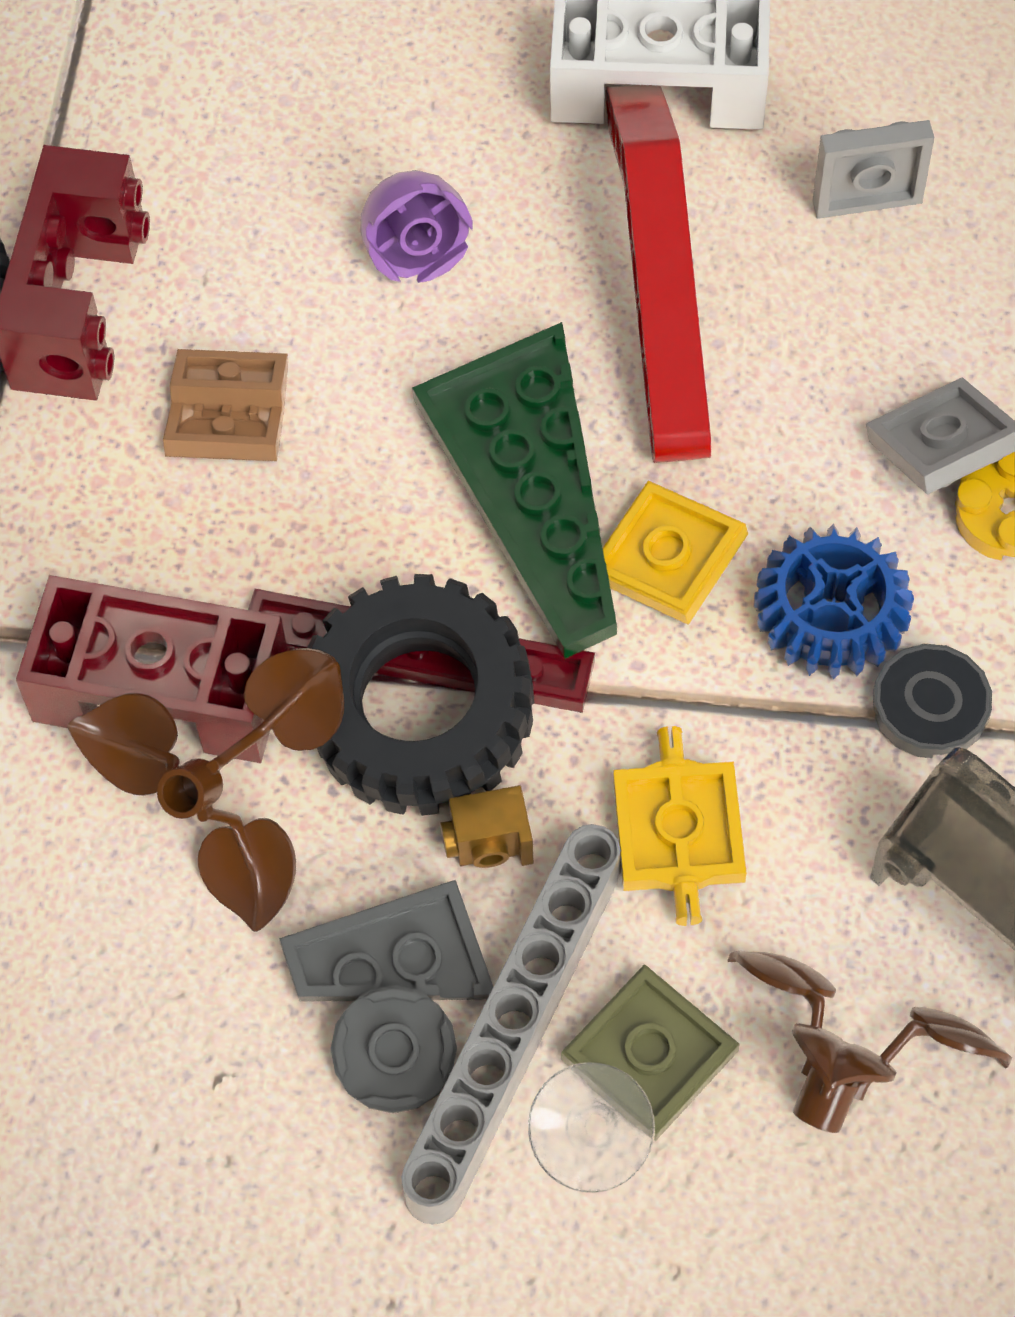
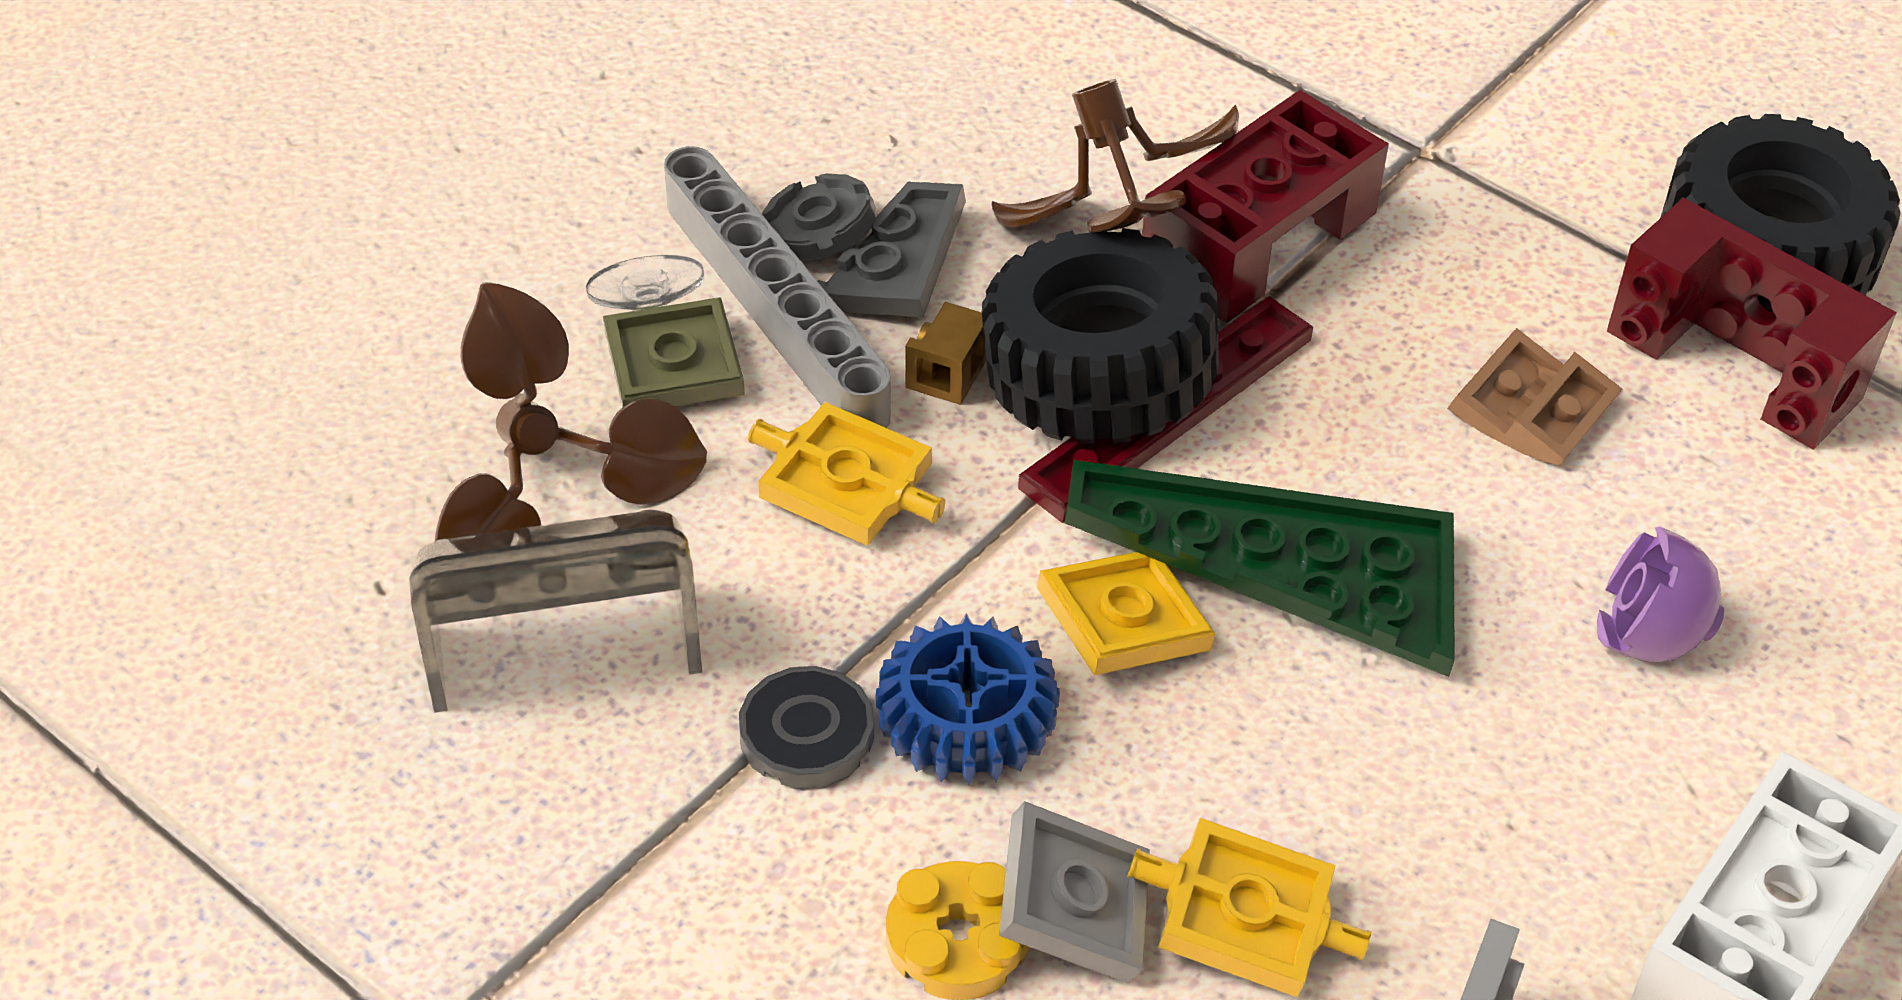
camera: 120 degrees right, 15 degrees down
(662, 271) = (1483, 734): red beam -> none
(866, 344) = (1248, 907): none -> yellow plate

